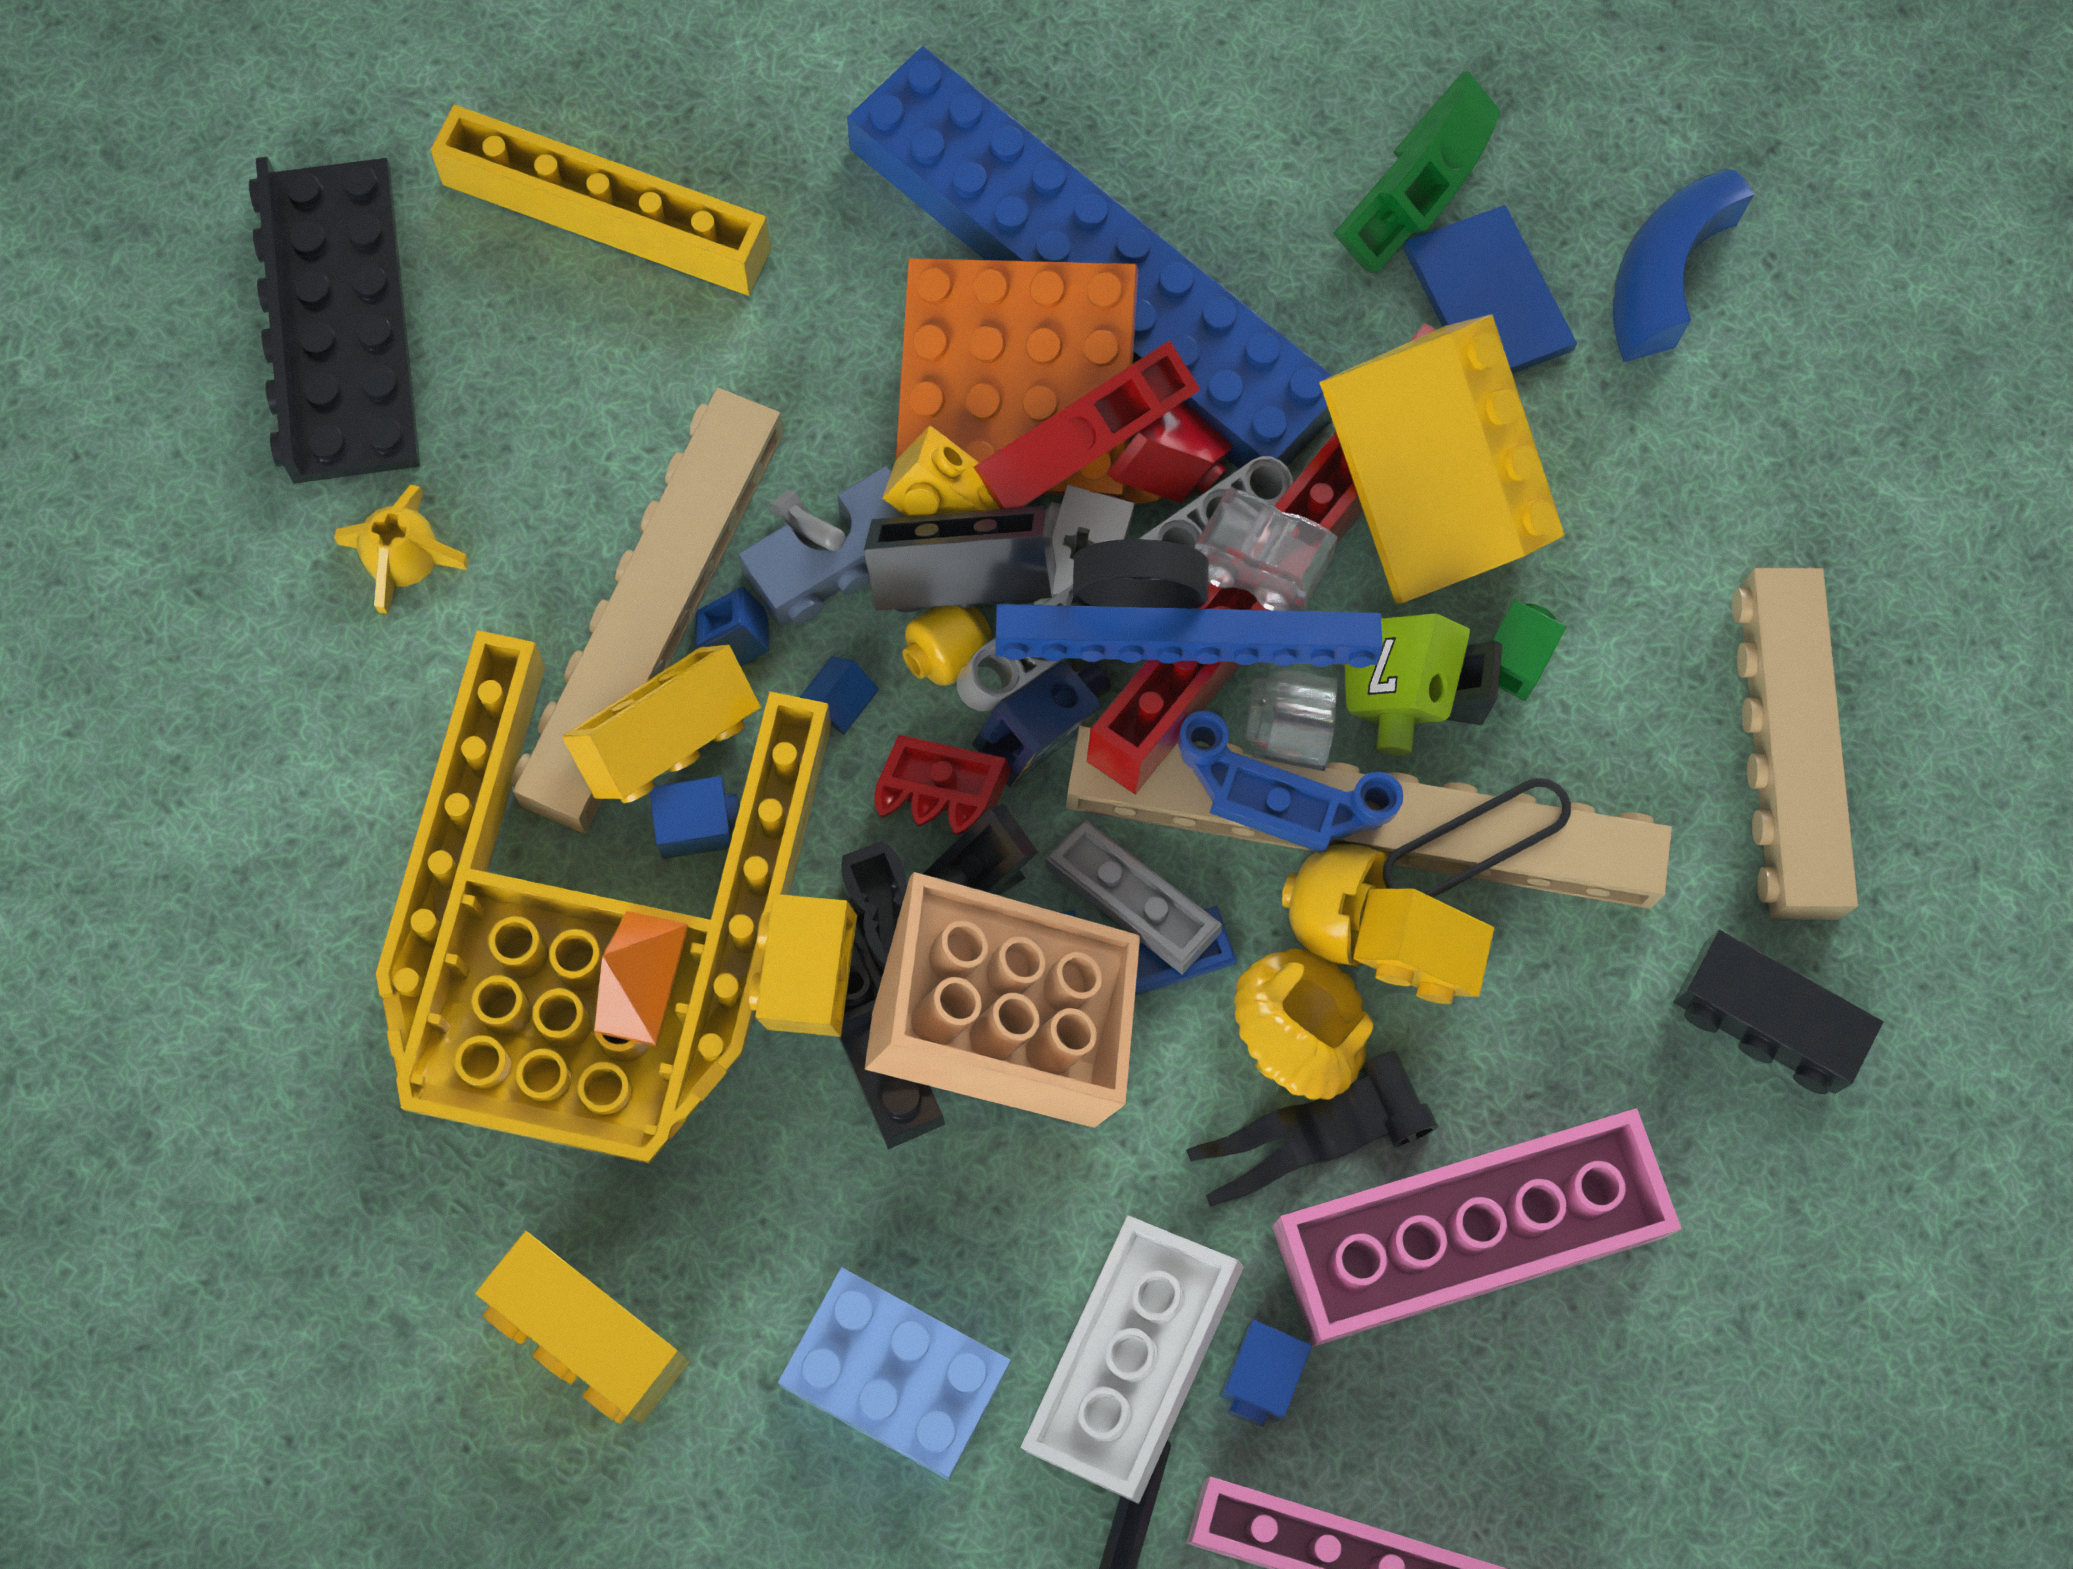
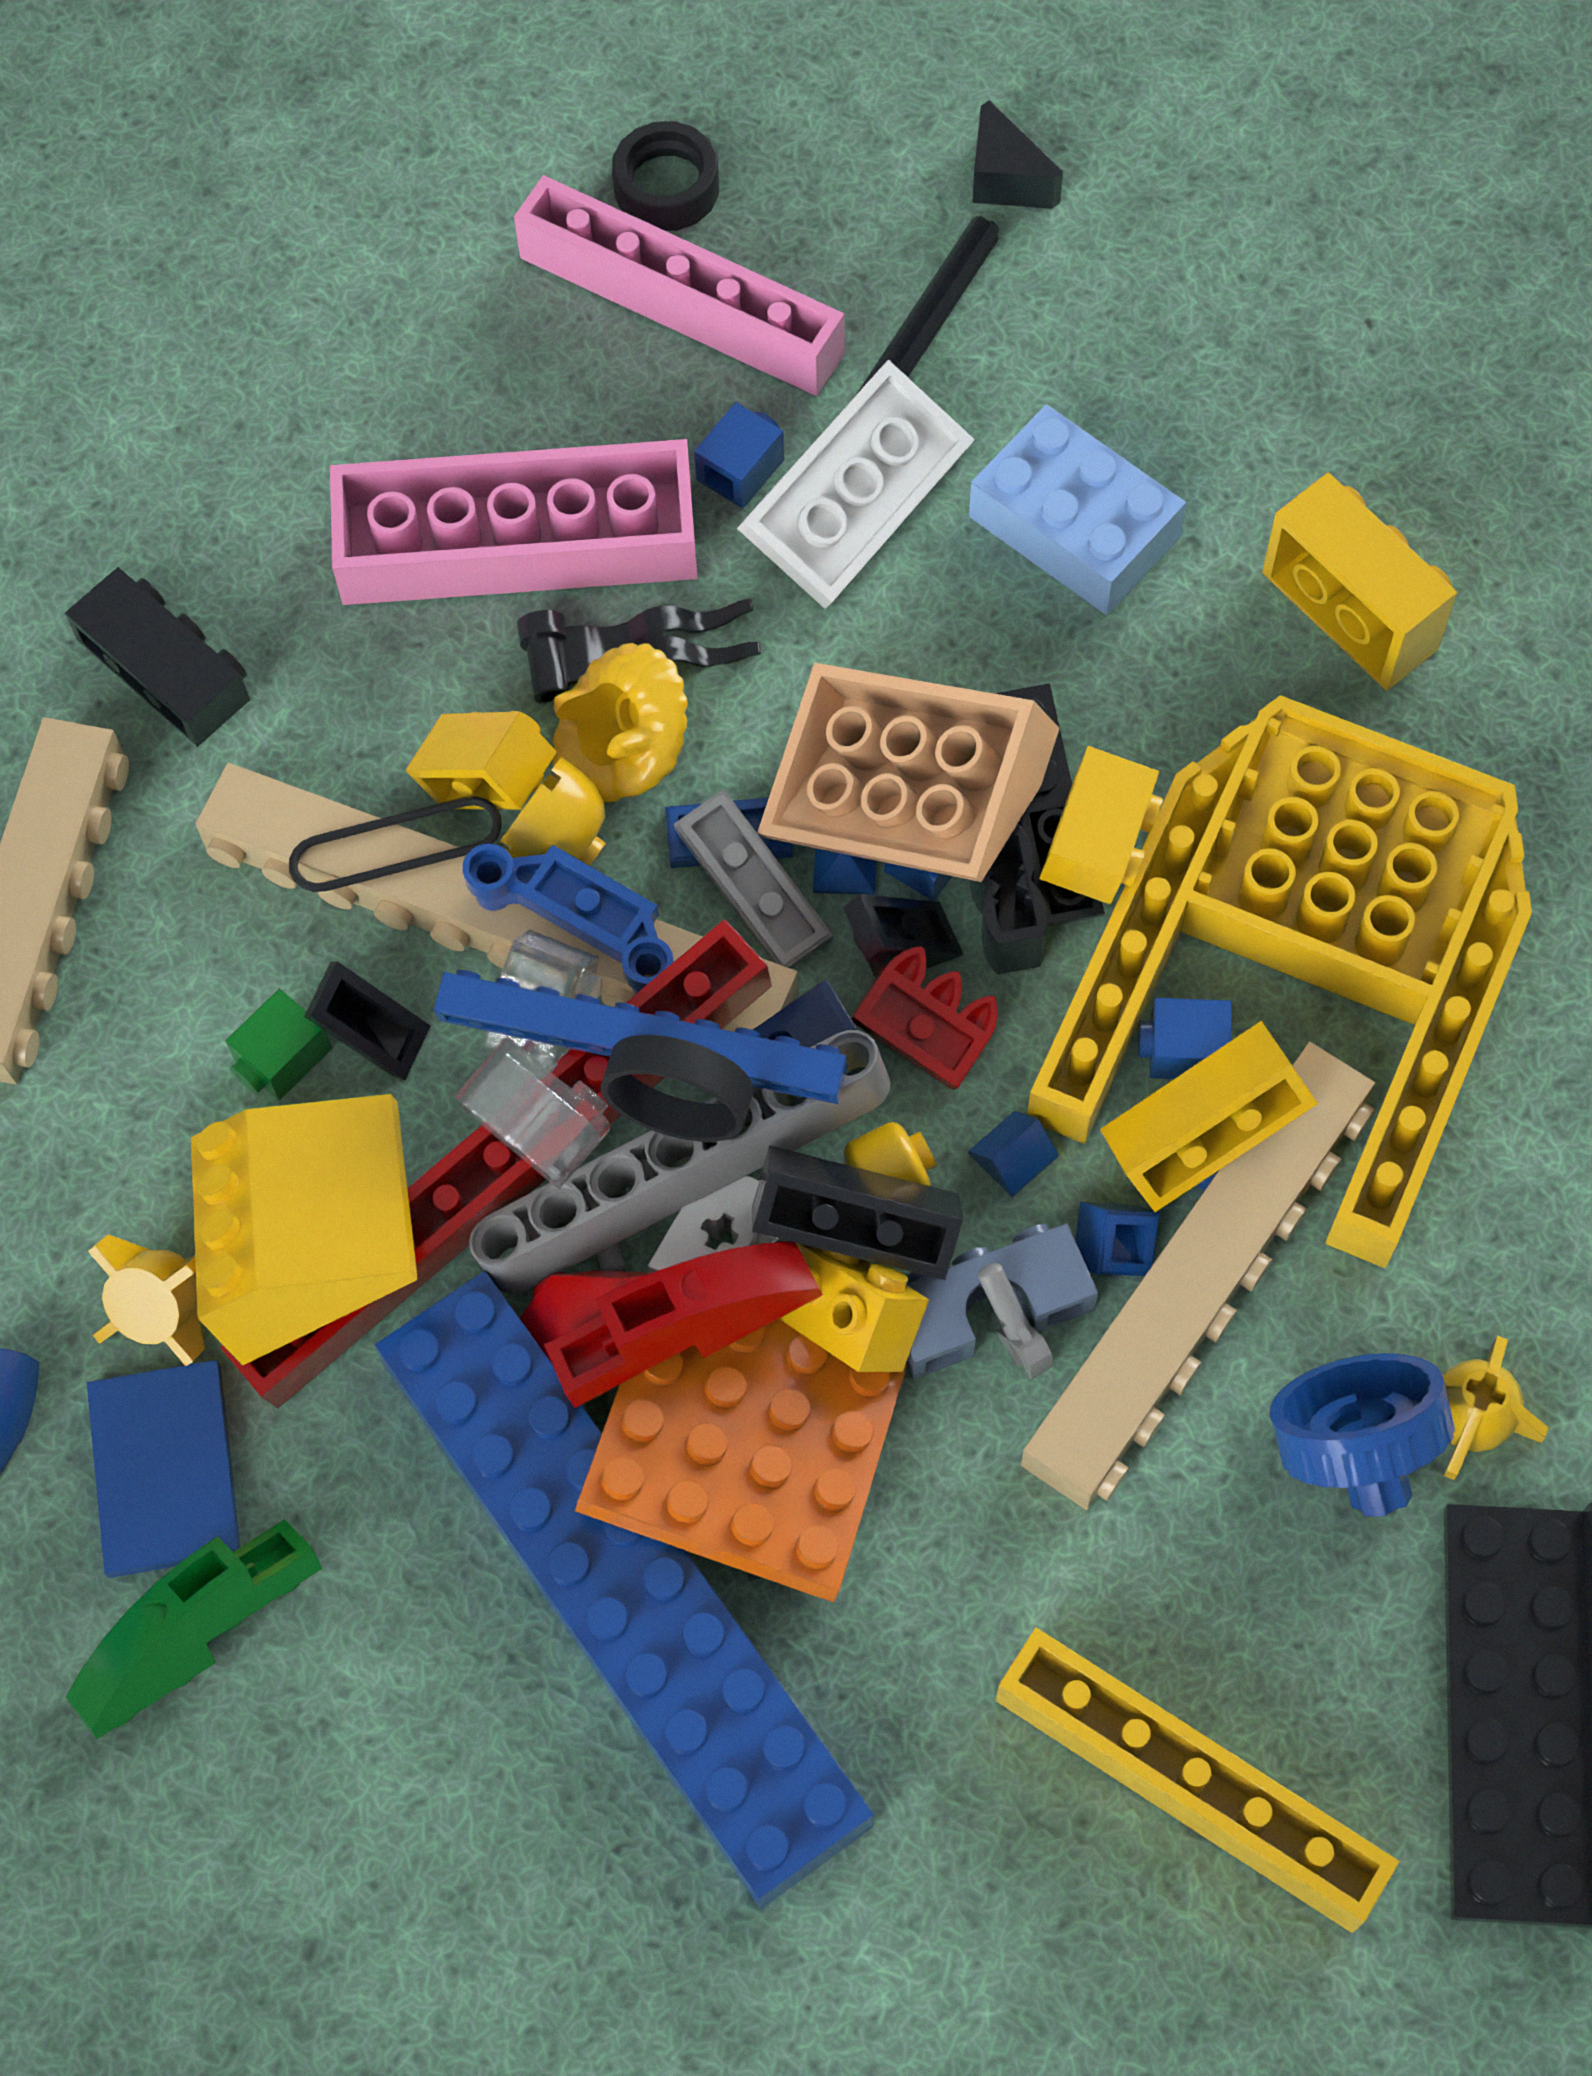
camera: 160 degrees left, 5 degrees down
(470, 458) = (1364, 1426): none -> blue piece
(638, 977) = (1264, 854): orange slope -> none
(1411, 680) = (402, 1039): lime torso -> none
(1560, 413) = (149, 1296): none -> yellow piece

